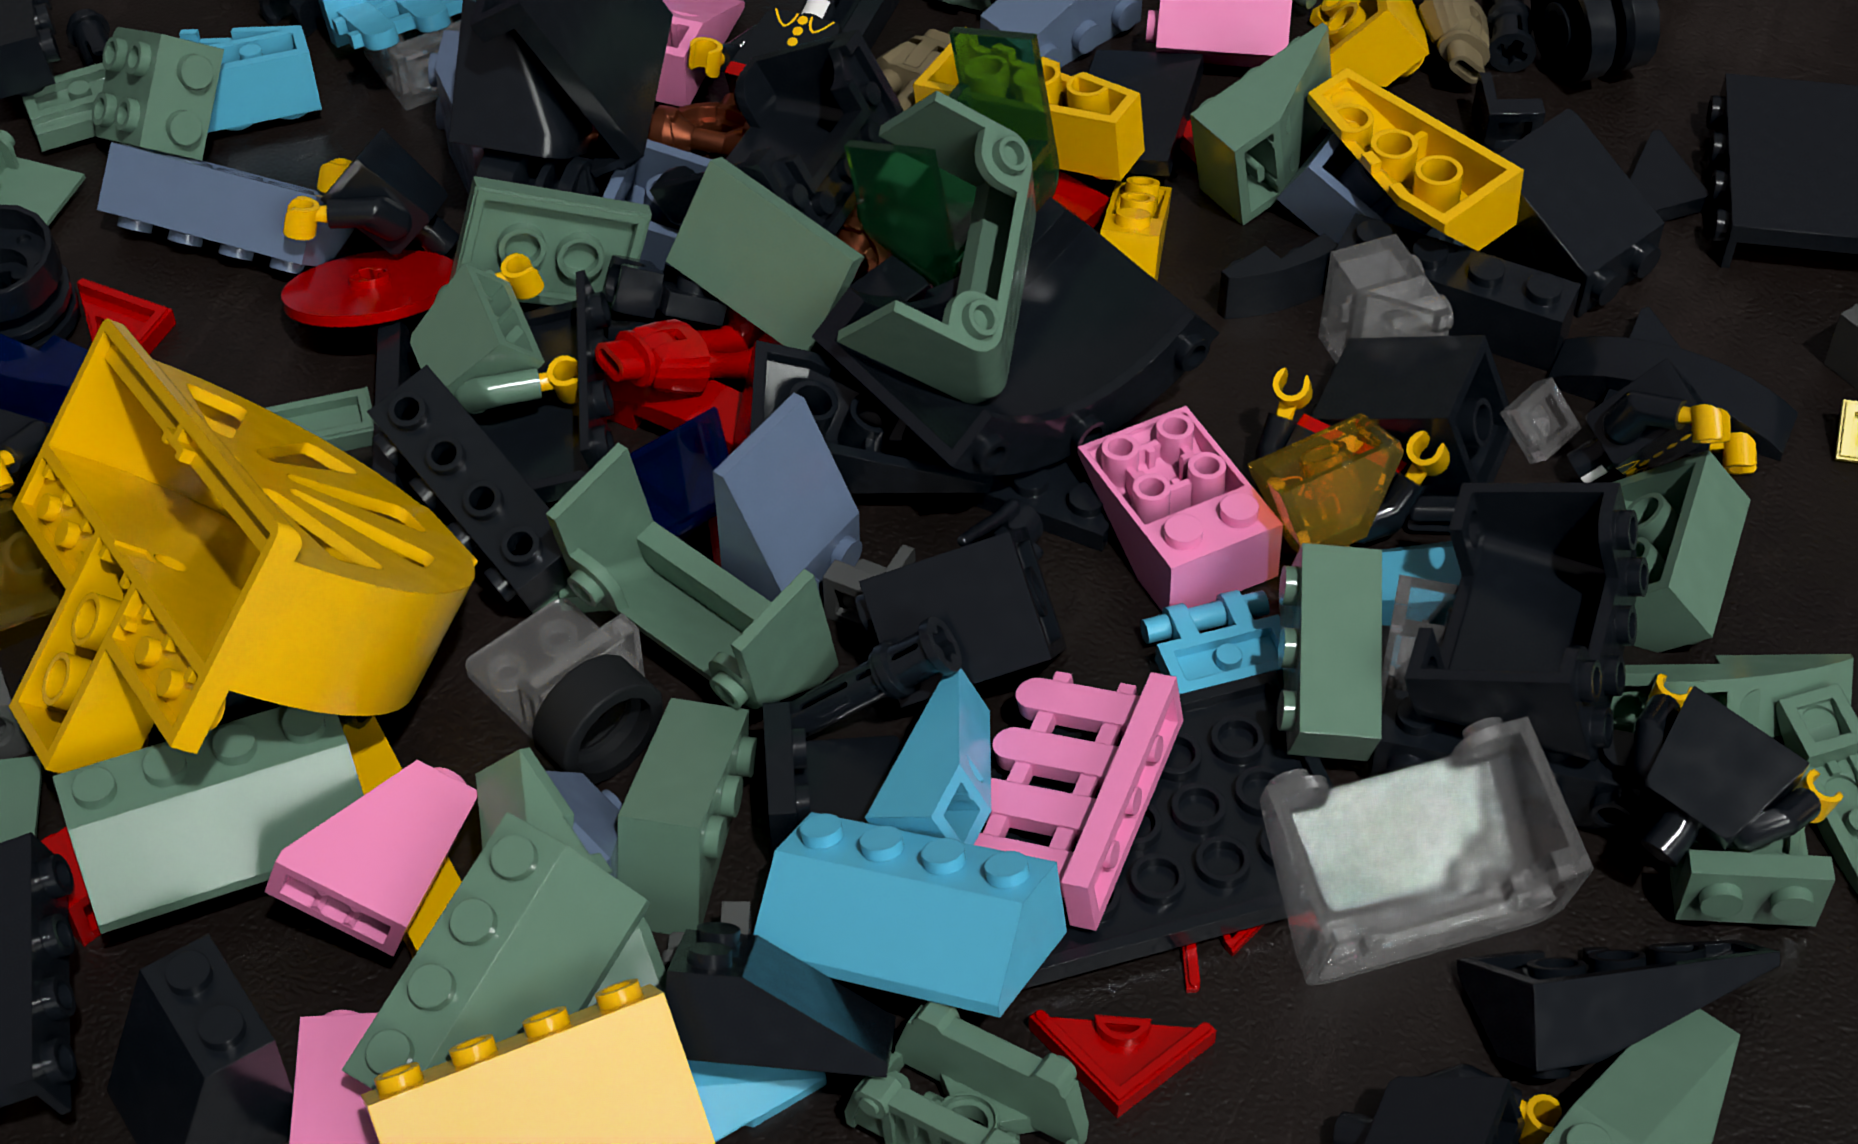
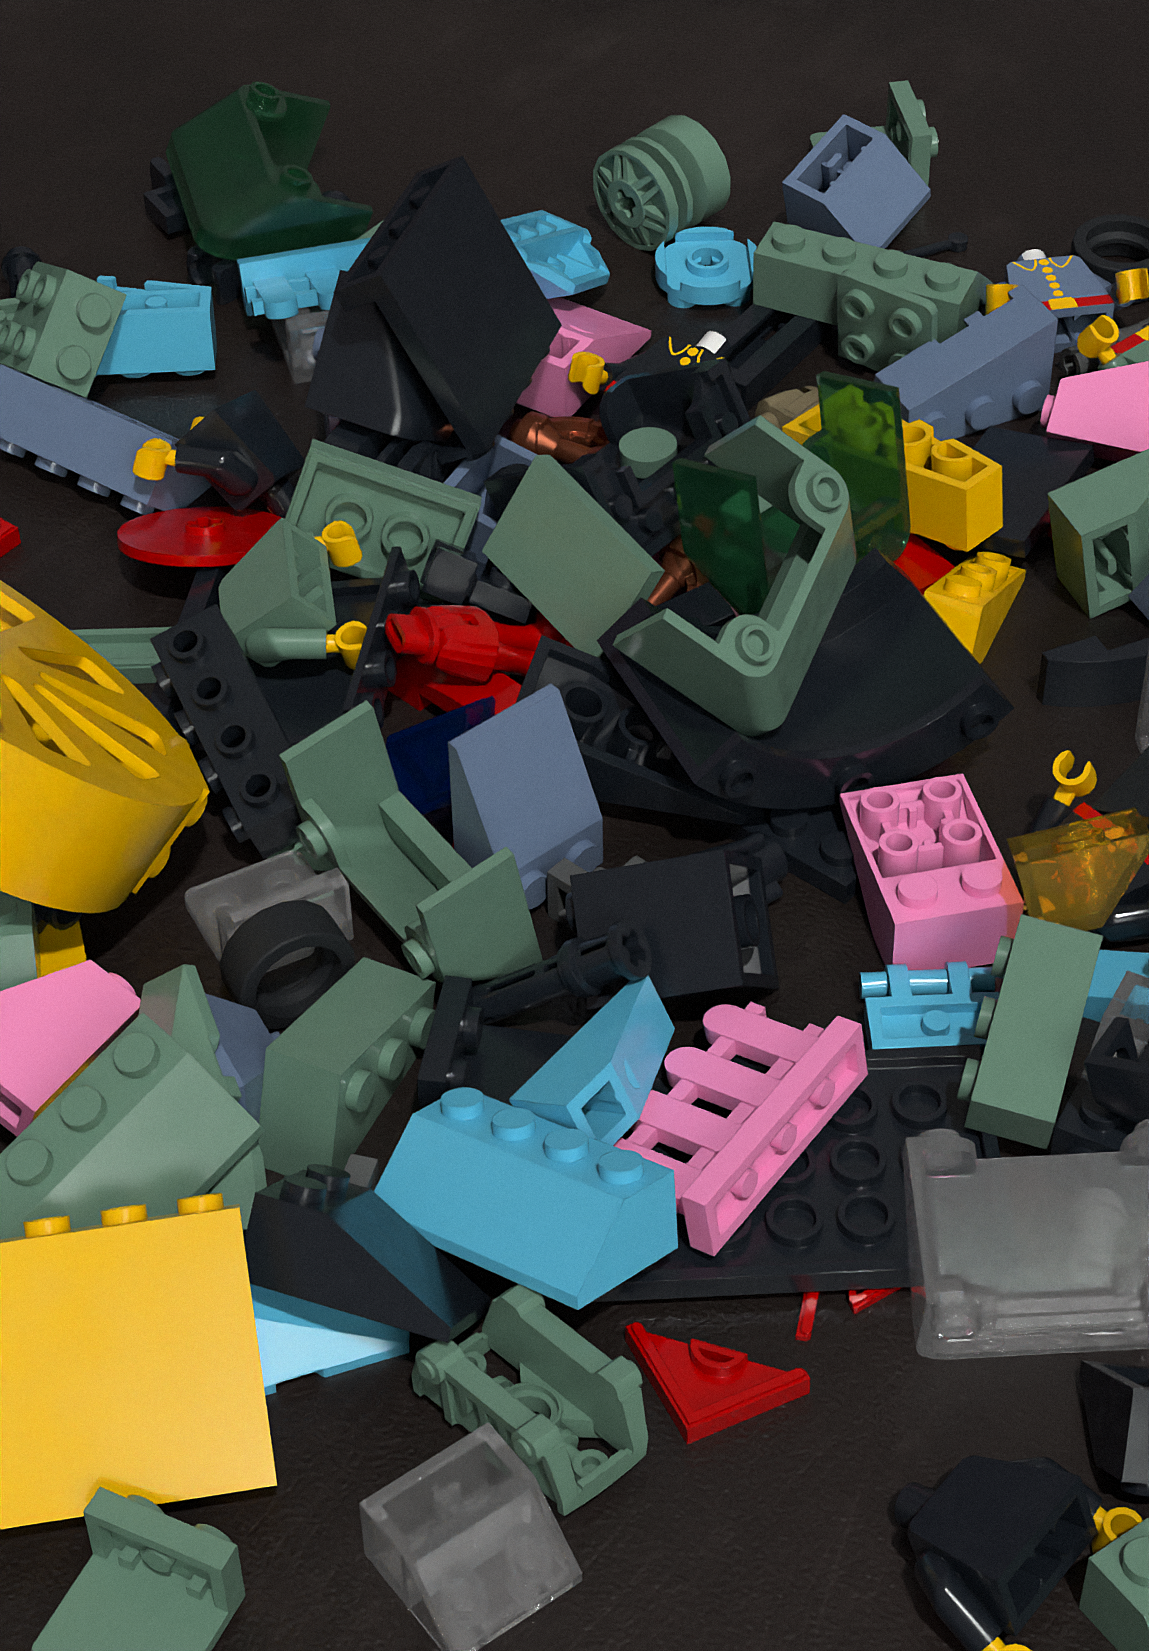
camera: 15 degrees right, 5 degrees down
(795, 131) = (646, 450): none -> sand green tile

